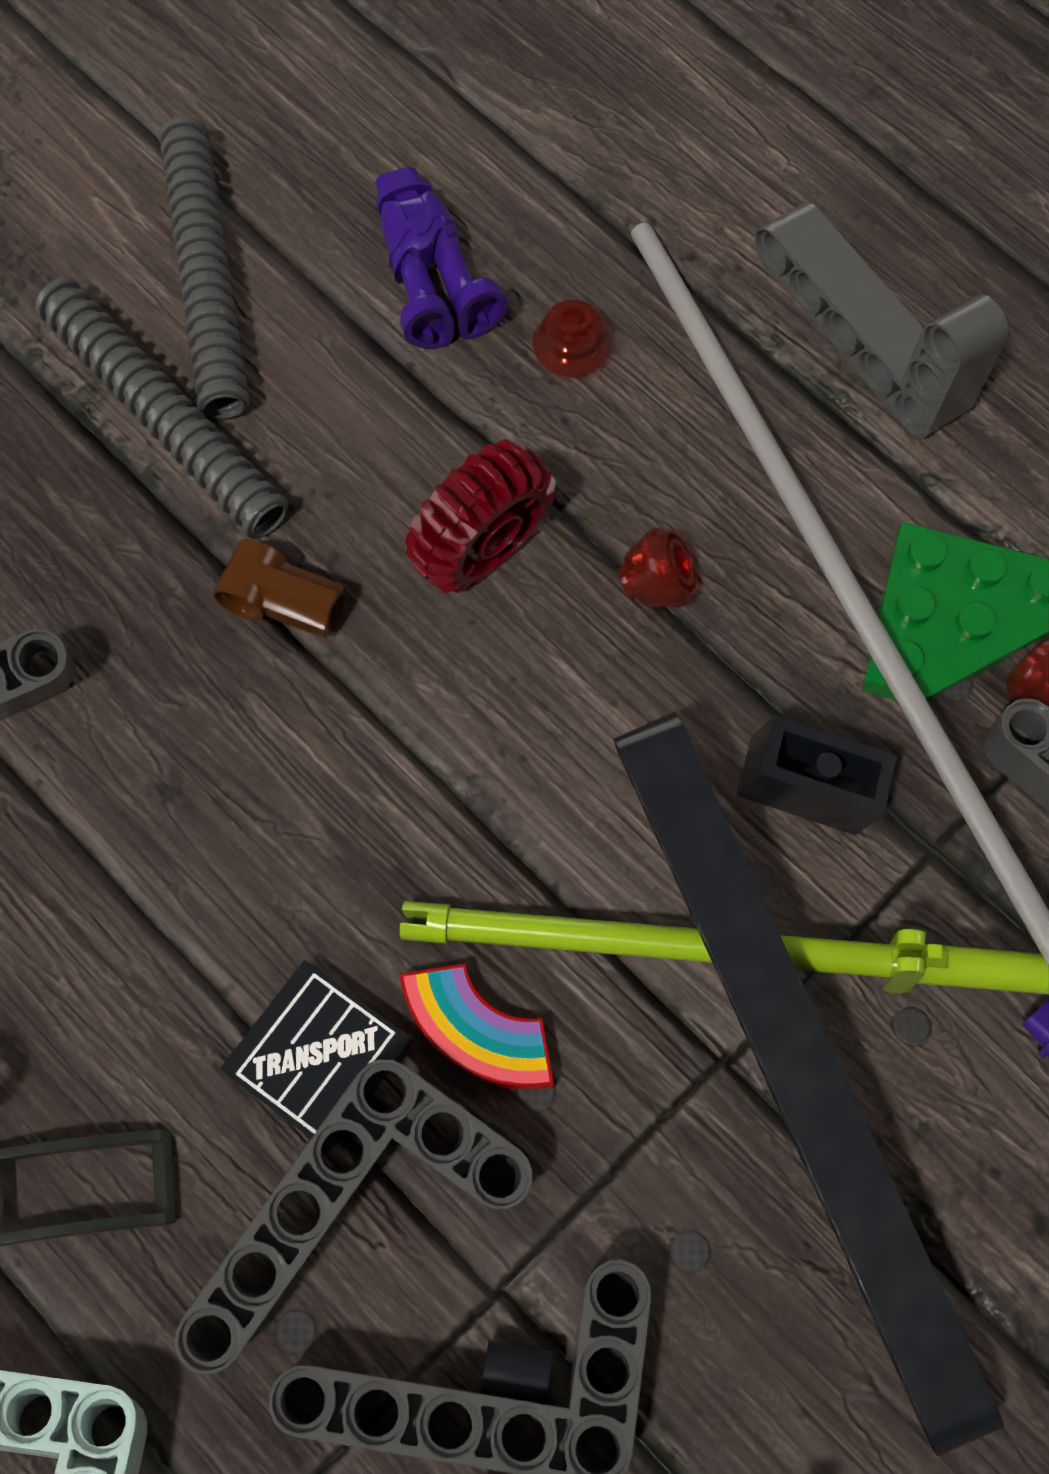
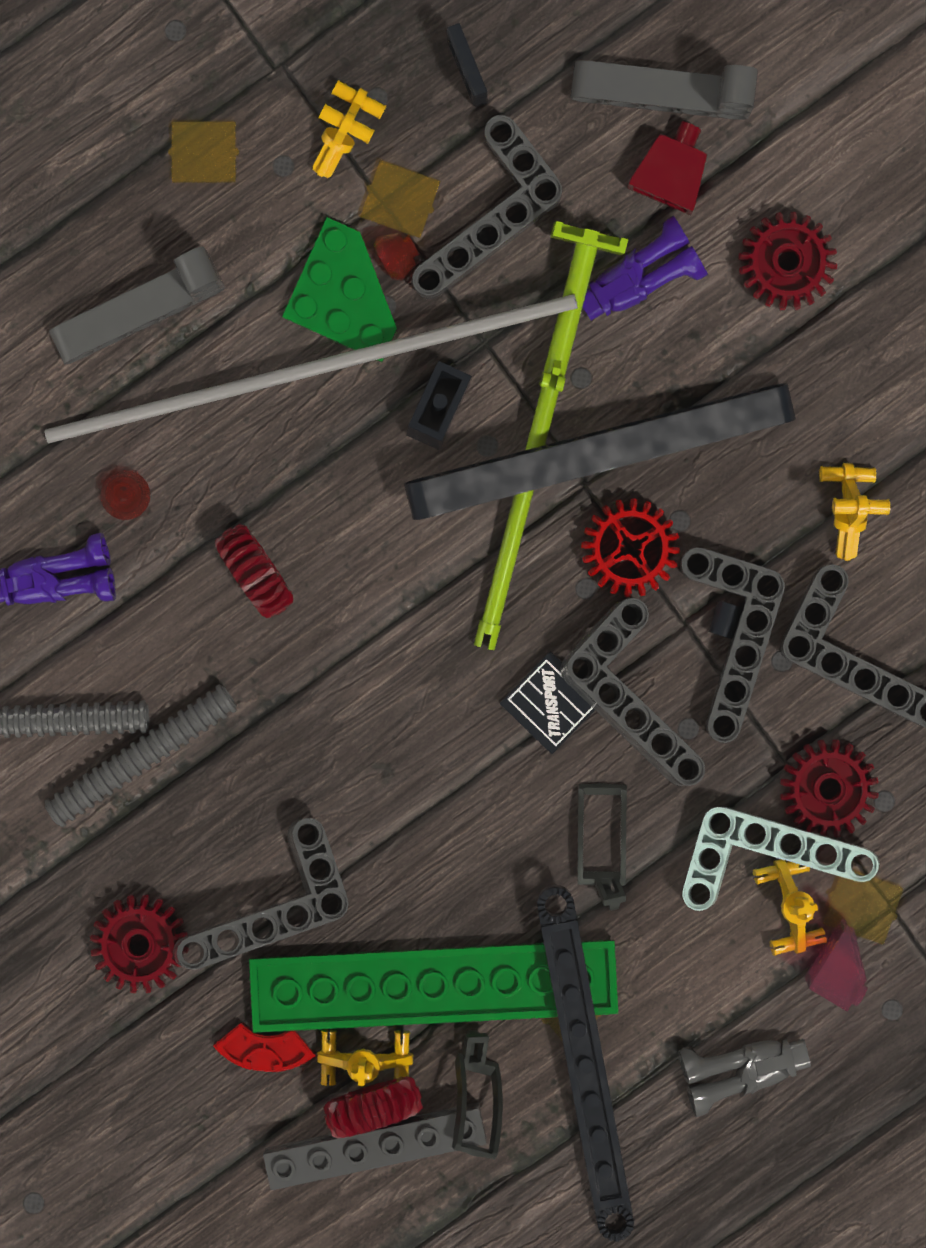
camera: 75 degrees left, 20 degrees up
(264, 583) = (272, 702): reddish brown piece -> none
(475, 1034) = (551, 617): tile -> none
(647, 1183) = (656, 531): none -> red gear
(659, 570) = (296, 469): clear red cone -> none

